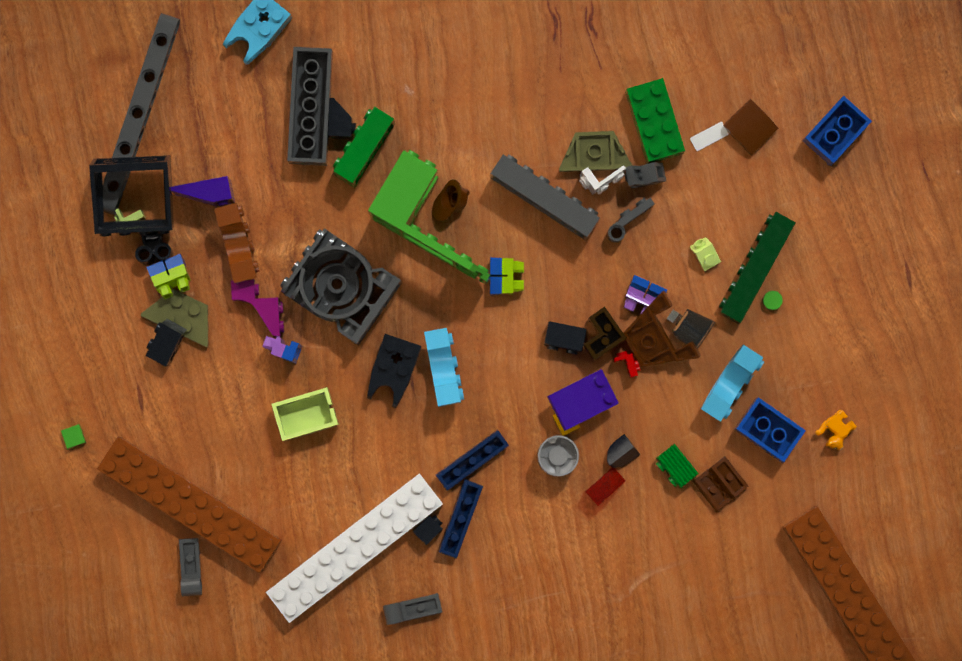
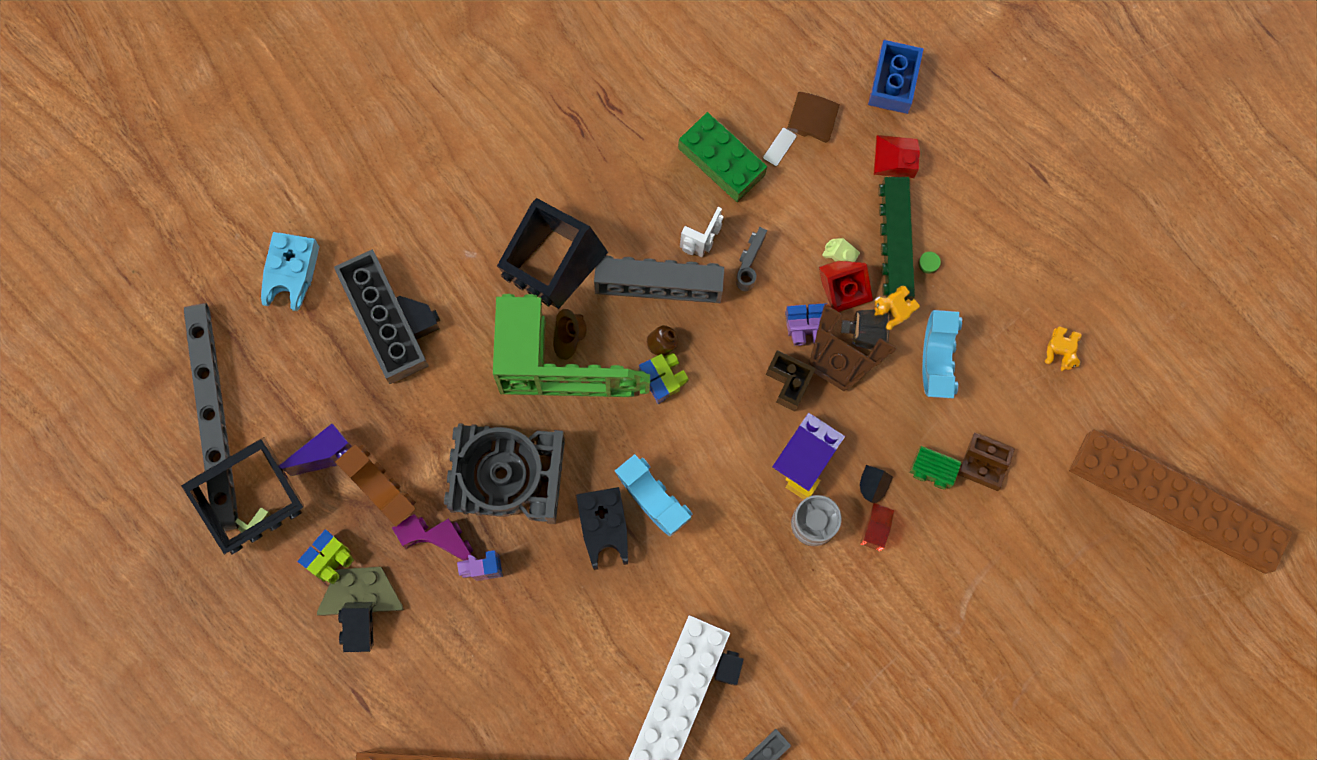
camera: 30 degrees left, 10 degrees down
(153, 244) = (293, 536): black piece -> none
(305, 414) = (539, 621): yellowish green piece -> none
(364, 146) = (455, 326): green brick -> none
(460, 518) = (755, 639): dark blue brick -> none
(472, 460) = (732, 573): dark blue brick -> none
(482, 154) = (576, 265): none -> black windscreen
(520, 247) = (662, 340): none -> reddish brown head
(565, 337) = (754, 403): black brick -> none
(596, 151) = (678, 211): olive wing -> none
(632, 366) = (834, 395): red bracket -> none
(645, 175) = (742, 210): dark grey brick -> none
(693, 282) = (846, 284): none -> red slope
(721, 324) = (897, 305): none -> light orange animal
(769, 429) = (1003, 382): blue brick -> none
(799, 197) = (896, 156): none -> red slope

